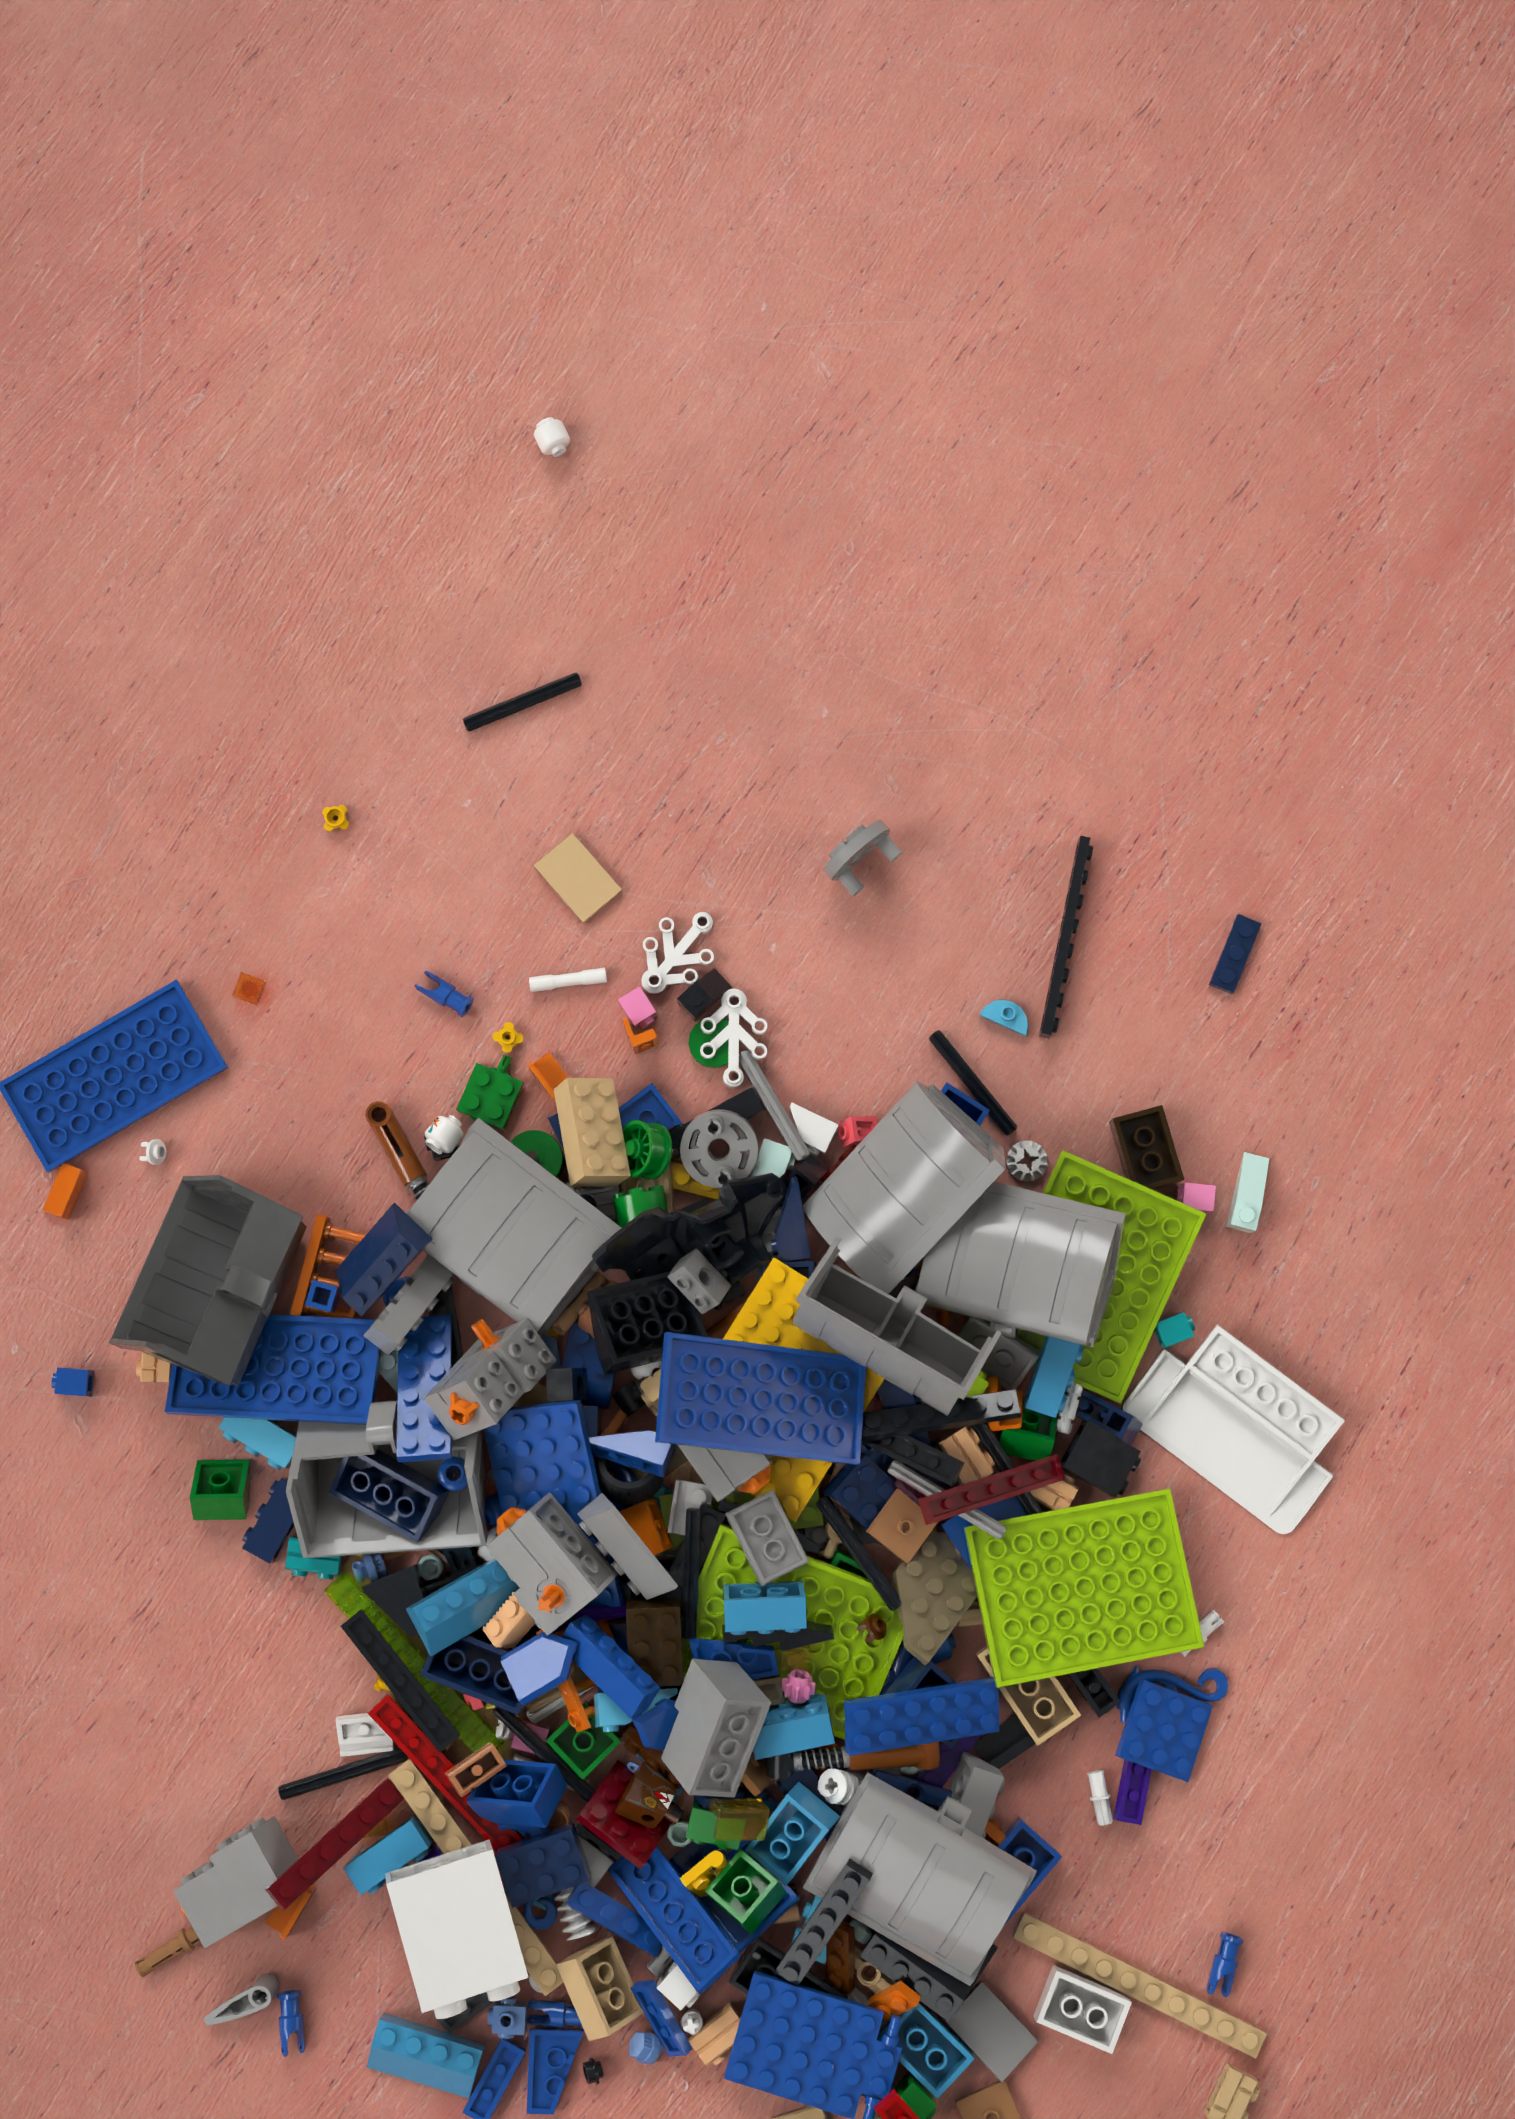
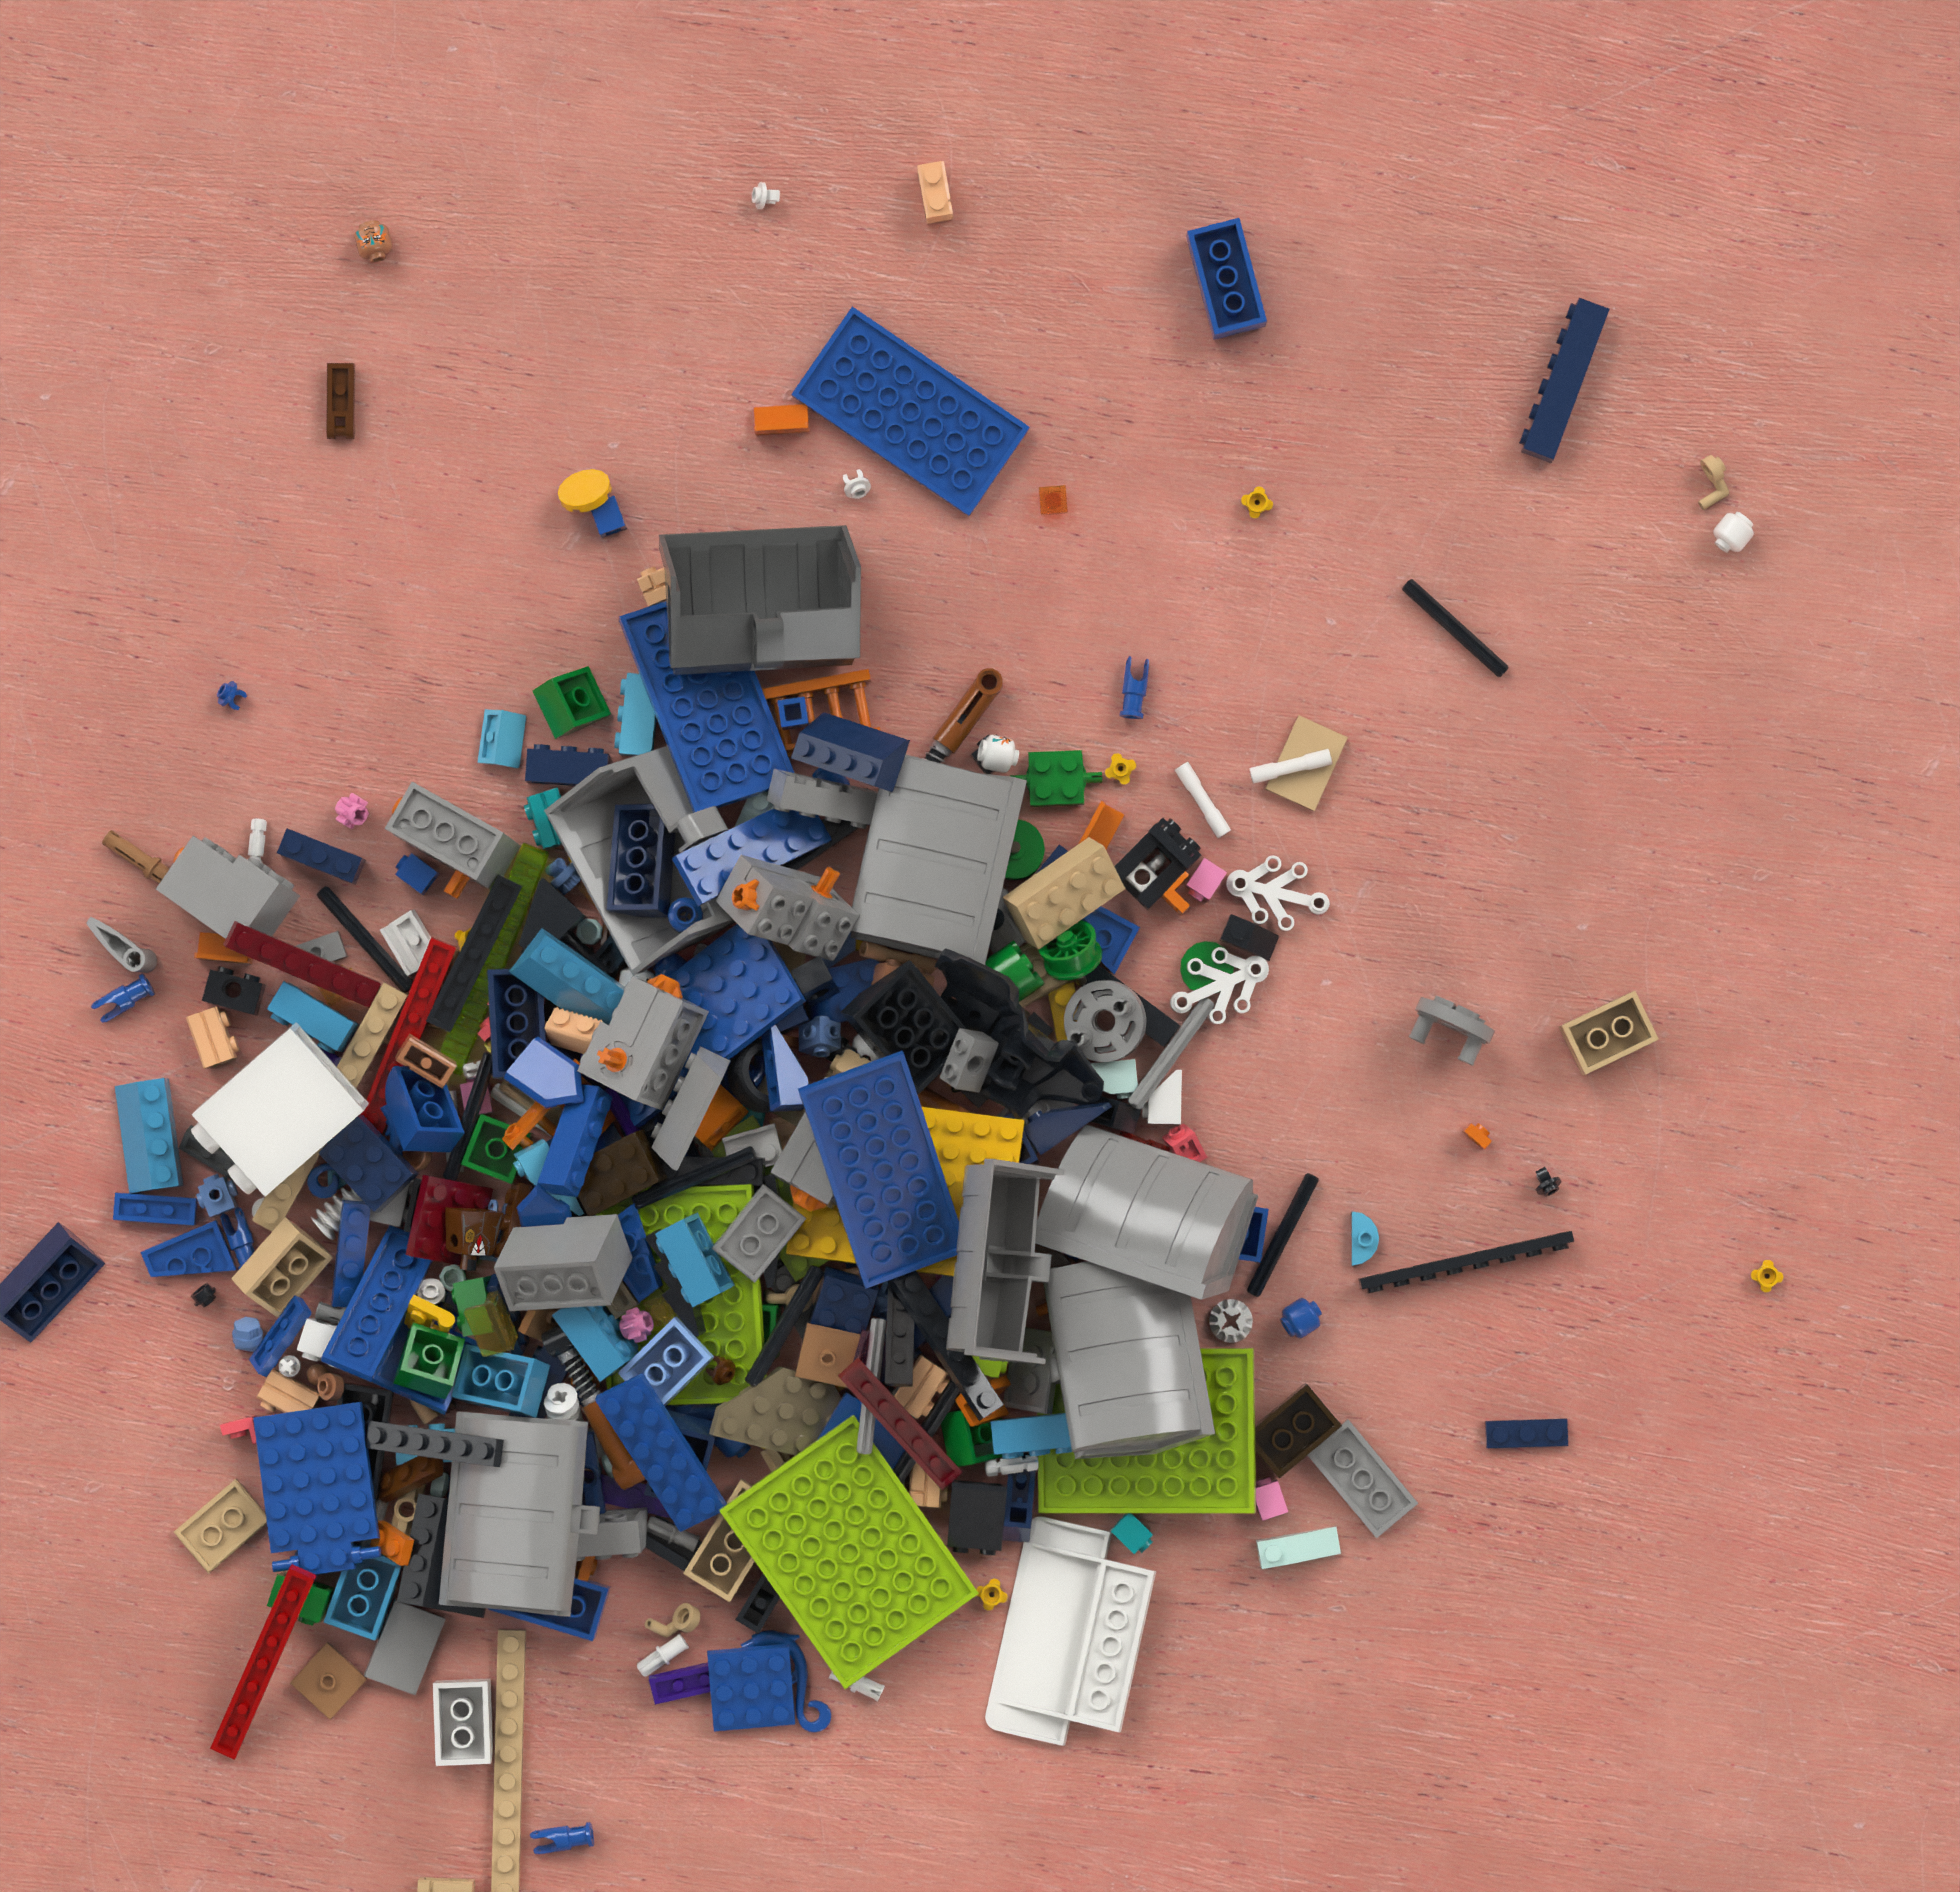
camera: 70 degrees right, 5 degrees up
(40, 1391) = (584, 490): none -> yellow tile
(64, 1798) = (227, 693): none -> blue plate
(131, 754) = (1226, 278): none -> blue brick
(206, 1831) = (257, 839): none -> white axle
(222, 1733) = (351, 811): none -> bright pink gear
(223, 1566) = (502, 738): none -> medium azure panel
(249, 1779) = (321, 856): none -> dark blue brick
(288, 1652) = (452, 838): none -> light grey piece
(305, 1699) = (416, 873): none -> blue brick
(320, 1928) = (217, 991): none -> black brick
(333, 1810) = (327, 947): none -> light grey plate
(357, 516) = (1565, 379): none -> dark blue brick
(364, 1955) = (212, 1037): none -> light nougat brick
(491, 429) = (1714, 471): none -> tan plate
(577, 875) = (1306, 762): none -> white piece
(594, 1023) = (1169, 842): none -> black brick
(618, 1404) = (820, 1036): none -> medium blue brick
(684, 1858) = (432, 1291): none -> white plate
(725, 1993) = (329, 1384): none -> nougat plate
(726, 2095) = (238, 1428): none -> coral bracket
(843, 1671) = (669, 1360): none -> light blue brick
(925, 729) = (1608, 1033): none -> tan brick
(962, 878) = (1478, 1135): none -> orange plate
(996, 1739) = (672, 1534): none -> light grey axle
(1029, 839) = (1547, 1184): none -> black plate
(1052, 1099) = (1301, 1318): none -> blue head
(1076, 1762) = (685, 1619): none -> tan plate
(1178, 1472) = (999, 1595): none -> yellow plate
(1194, 688) = (1767, 1268): none -> yellow plate
(1215, 1109) = (1362, 1479): none -> light grey plate

